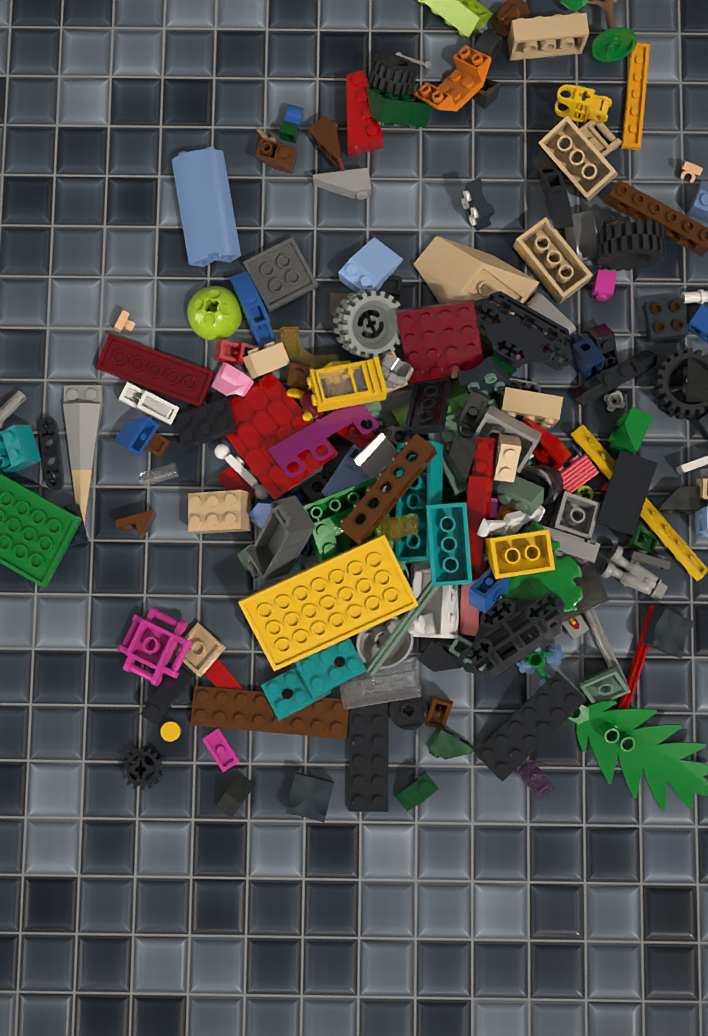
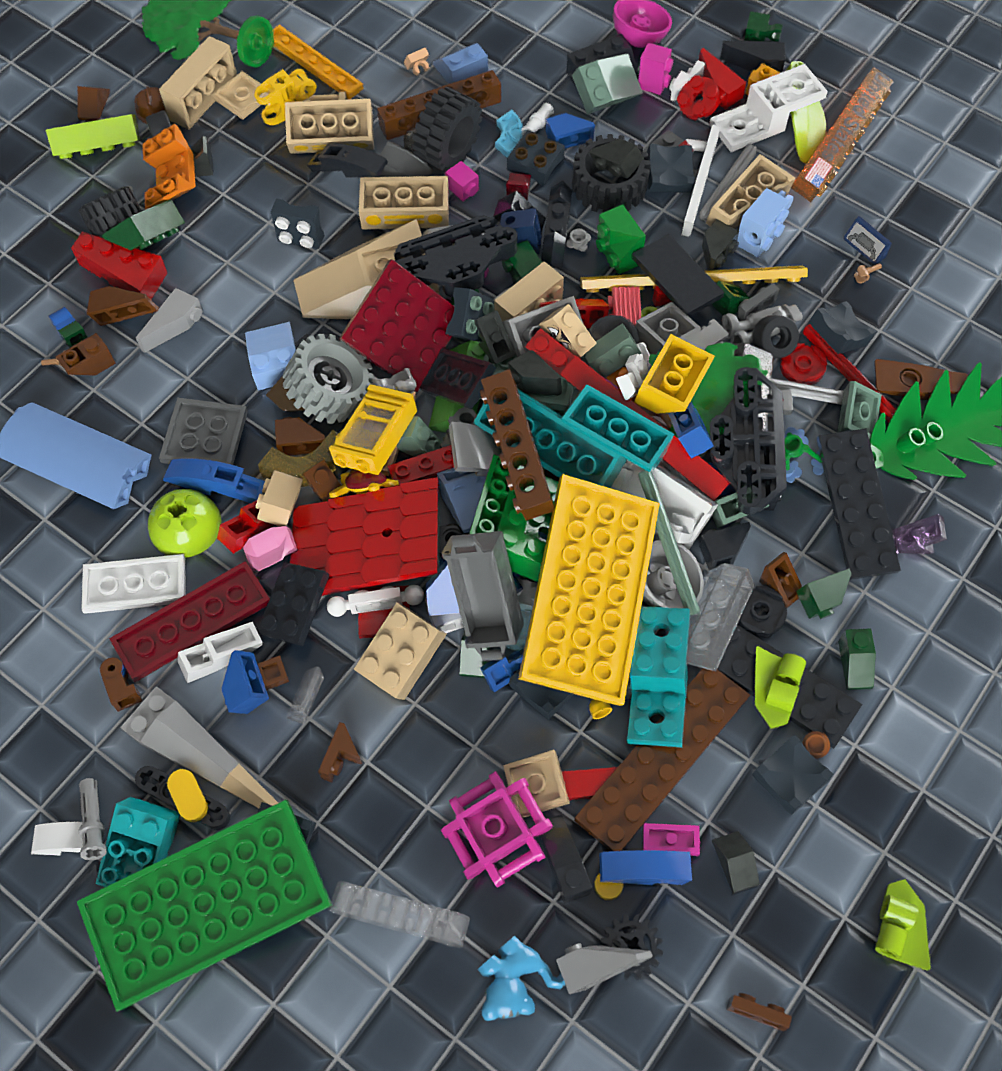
camera: 55 degrees left, 20 degrees down
(51, 457) = (187, 795): none -> yellow tile
(68, 717) = (507, 994): none -> dark azure animal
(71, 626) = (399, 914): none -> clear beam
(86, 362) = (116, 684): none -> reddish brown leg
(116, 757) = (594, 964): none -> light grey slope
(122, 322) = (111, 616): light nougat tile -> none
(155, 316) = (133, 583): none -> white tile
(158, 870) = (771, 1015): none -> reddish brown plate
(192, 746) = (645, 867): none -> blue slope
(254, 583) = (500, 671): none -> blue plate
(264, 915) = (903, 927): none -> lime panel
(315, 435) = (401, 489): magenta piece -> none
(319, 332) = (296, 436): none -> reddish brown slope
(341, 799) = (817, 744): none -> dark orange plate
(360, 752) = (777, 685): none -> lime panel
(399, 527) = (564, 456): clear yellow bracket -> none
(561, 381) = (522, 263): none -> dark green brick
(564, 70) = (239, 95): none -> tan plate
(622, 622) = (804, 365): none -> red tile
(626, 601) = (788, 335): none -> black tyre
(630, 326) = (518, 183): none -> dark red bracket
(656, 695) = (898, 378): none -> reddish brown piece
(674, 287) = (510, 132): none -> medium azure tile

